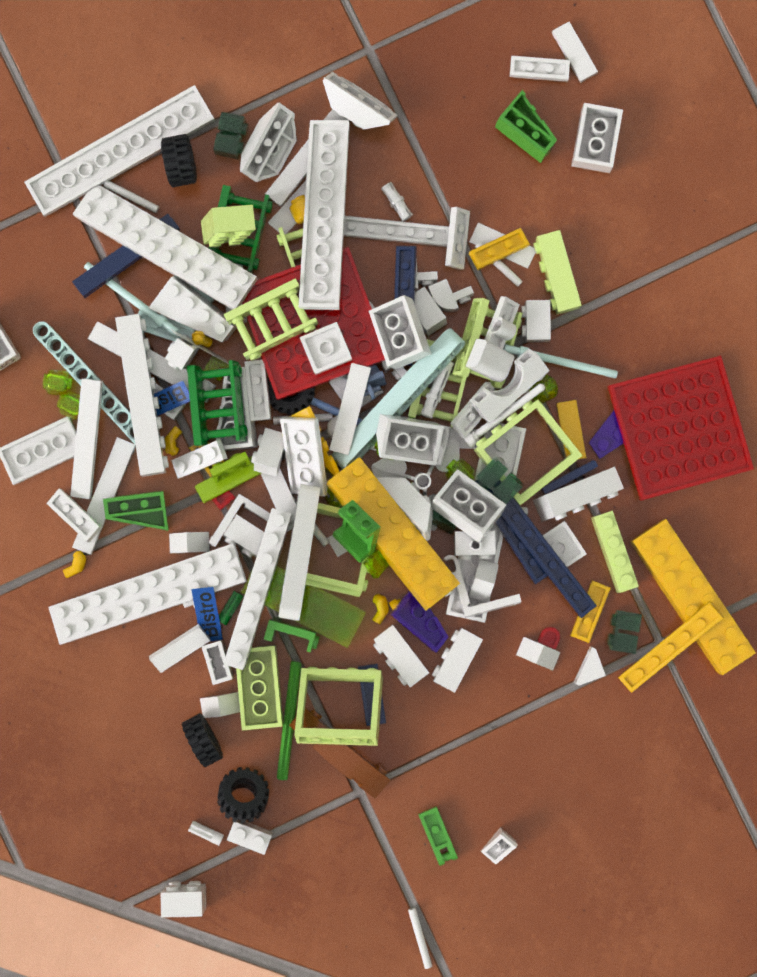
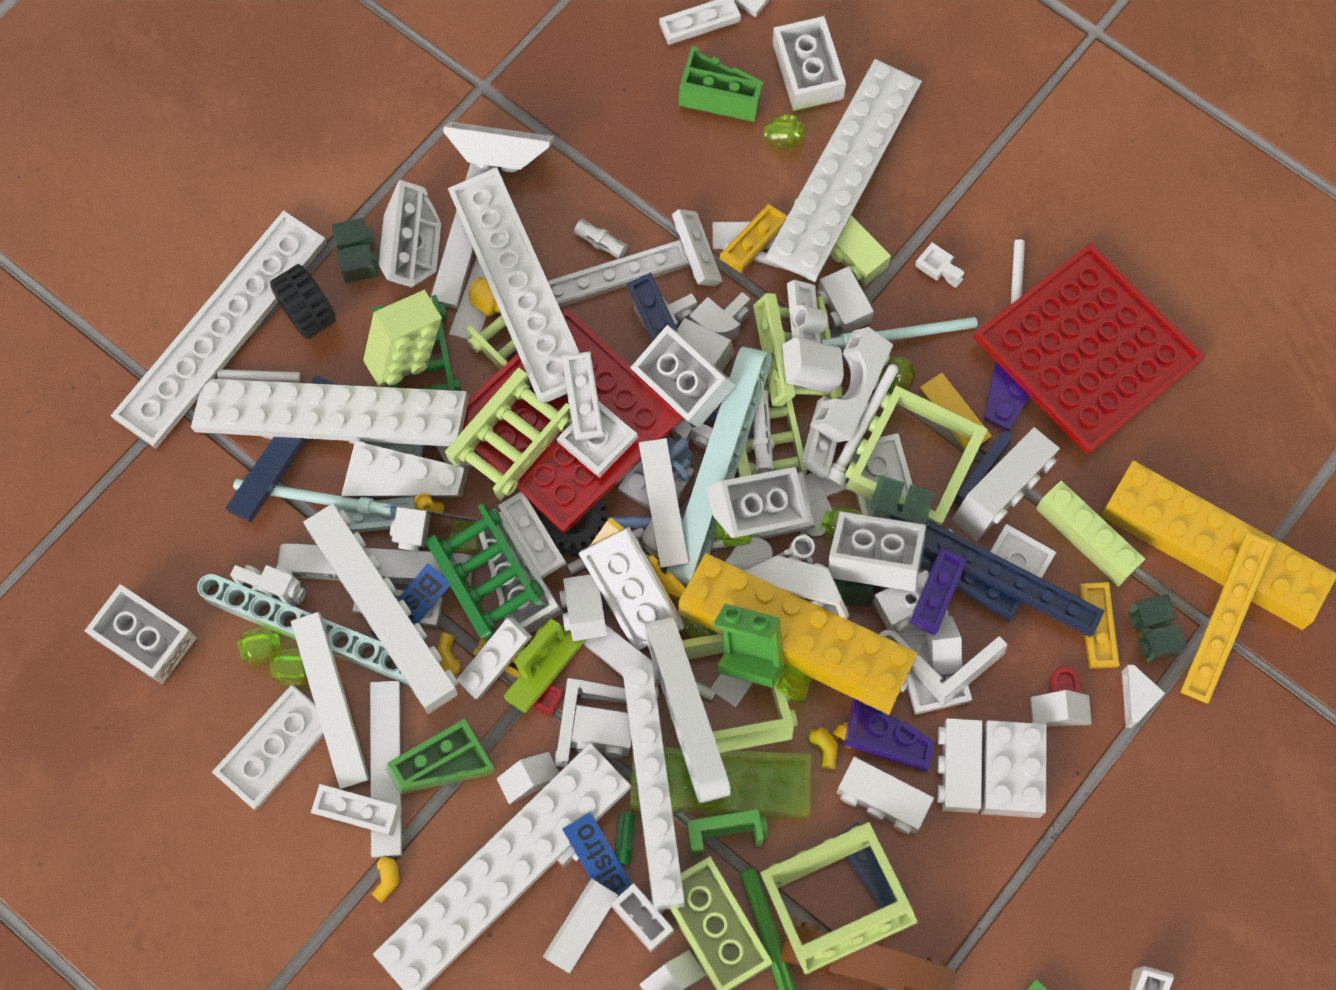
camera: 25 degrees left, 15 degrees down
(83, 349) = (273, 582): none -> white plate
(327, 318) = (582, 396): none -> white tile
(488, 677) = (1013, 769): none -> white brick
(494, 548) = (937, 591): none -> dark purple tile
(556, 180) = (784, 132): none -> clear neon green head
(582, 228) = (843, 171): none -> white plate
(611, 322) = (938, 262): none -> white plate
(662, 353) = (1017, 273): none -> white bar

